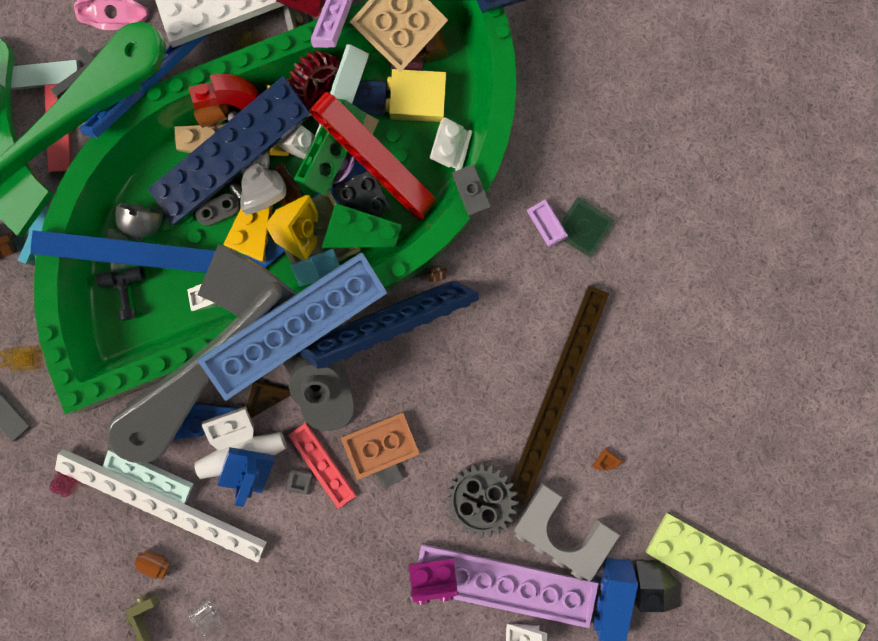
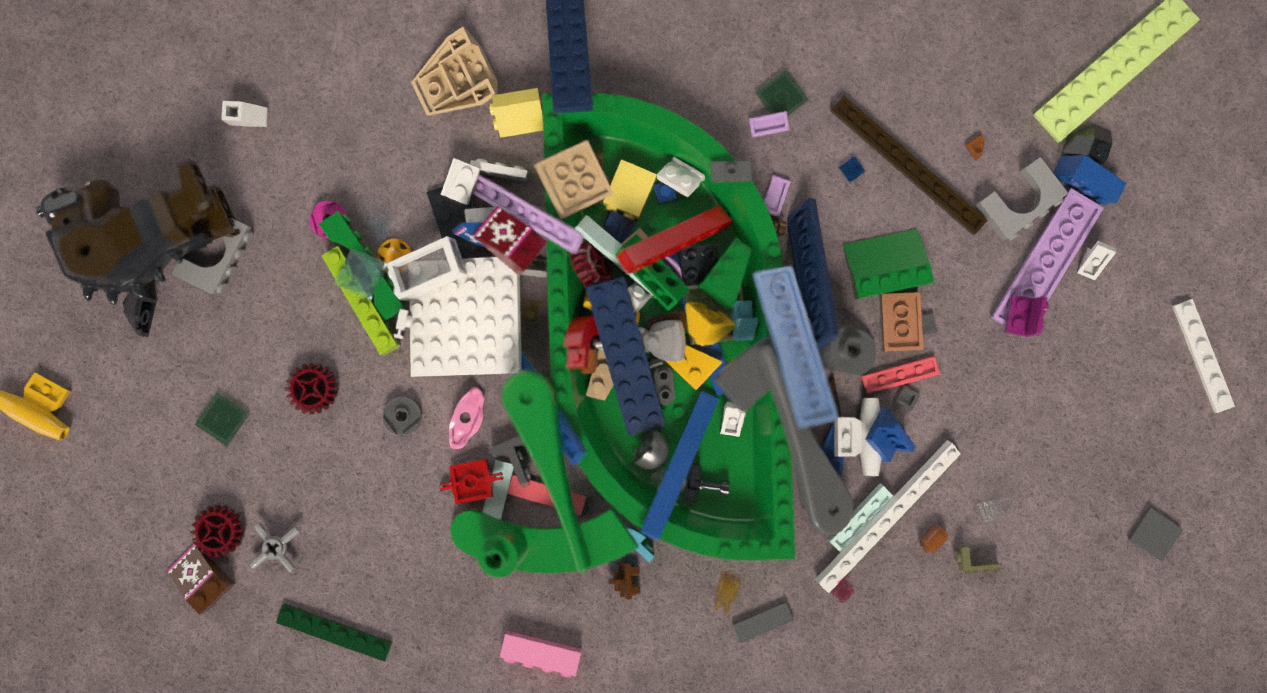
camera: 70 degrees left, 0 degrees up
(42, 41) = (471, 481): none -> red plate
(427, 135) = (664, 193): none -> blue plate
(439, 407) = (888, 264): none -> green piece
(470, 259) = (776, 195): none -> lavender tile
(476, 520) = (987, 266): dark grey gear -> none
(531, 332) = (852, 169): none -> clear blue tile

